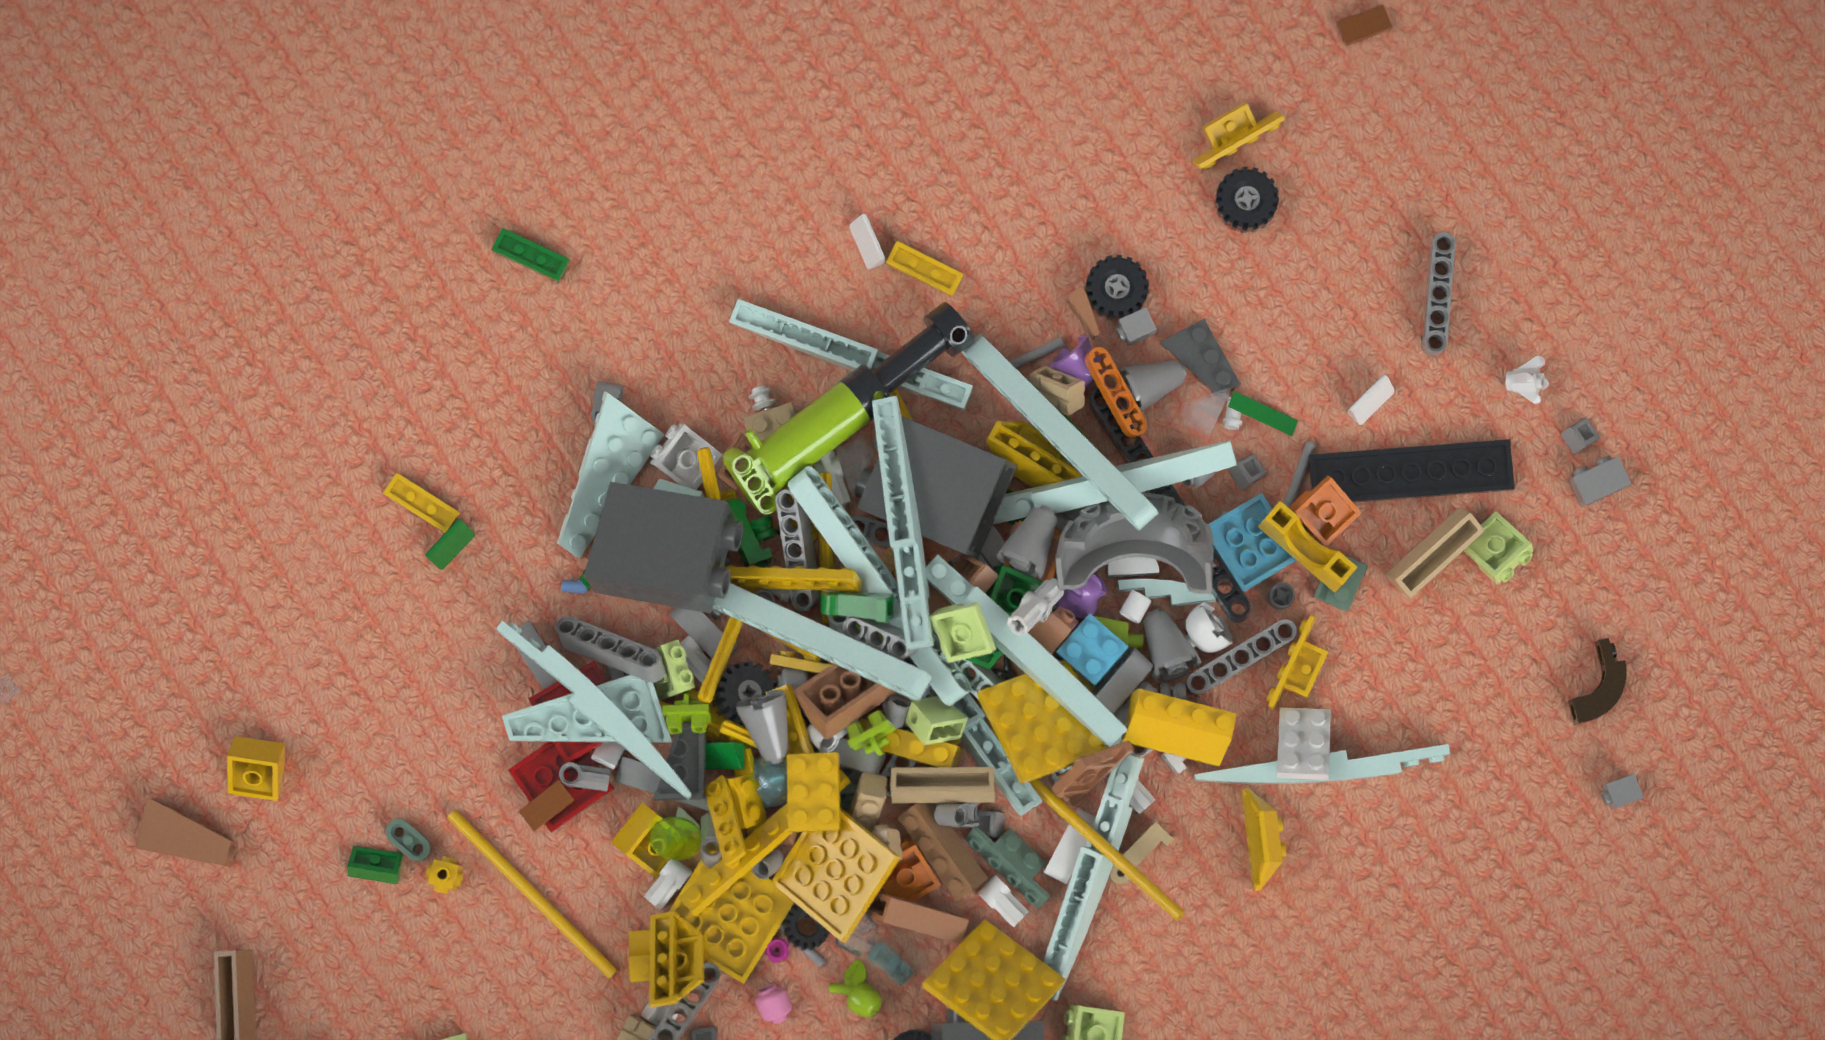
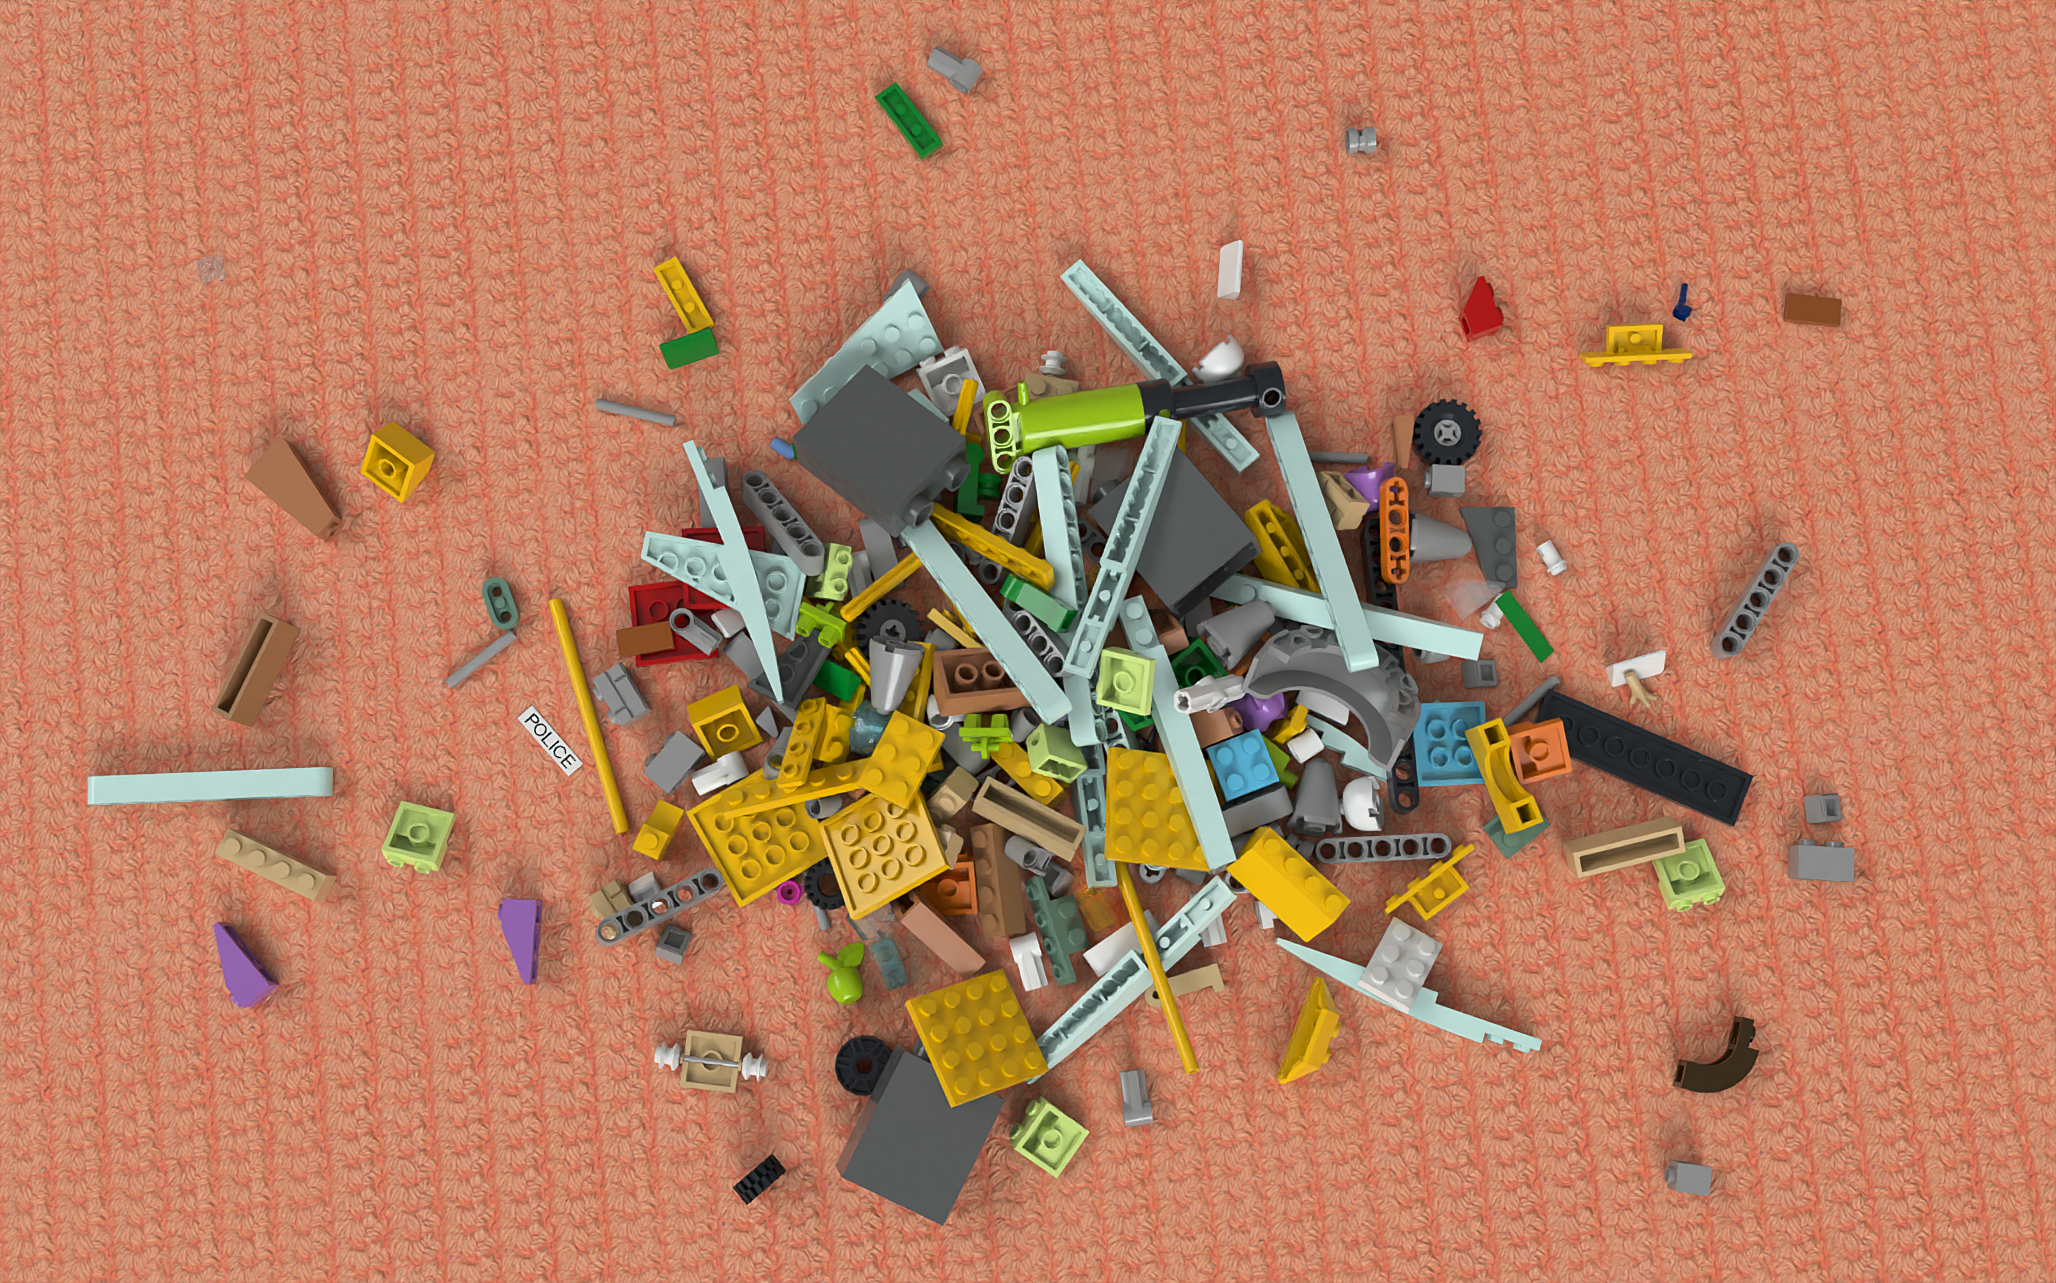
camera: 25 degrees right, 0 degrees up
(375, 864) = (458, 610): green slope -> none
(414, 898) = (481, 658): none -> light grey bar
(433, 621) = (636, 412): none -> light grey bar
(454, 875) = (524, 656): yellow brick -> none
(510, 932) = (550, 740): none -> white sticker
(551, 862) = (621, 696): none -> light grey brick
(552, 191) = (960, 73): none -> light grey piece
(625, 893) = (674, 761): none -> light grey brick
(674, 958) = (683, 849): yellow wedge -> none
(675, 838) = (748, 734): clear neon green piece -> none
(773, 1003) = (757, 941): bright pink head -> none
(900, 325) = (1221, 362): none -> white cylinder
(918, 75) = (1360, 140): none -> light grey wheel
(924, 269) = (1271, 323): yellow plate -> none
(1034, 829) = (1095, 908): none -> clear yellow brick
(1088, 772) = (1177, 881): nougat wing -> none
(1091, 171) = (1480, 314): none -> red slope
(1114, 597) = (1287, 727): none -> yellow plate
(1151, 970) = (1136, 1103): none -> light grey piece
(1244, 187) = (1627, 414): black wheel -> none
(1256, 345) = (1551, 558): none -> white pin
(1257, 81) = (1681, 310): none -> clear blue hand
(1284, 596) = (1456, 809): dark grey wheel -> none
(1382, 418) = (1638, 690): none -> tan bar
(1528, 380) = (1801, 728): white rock -> none

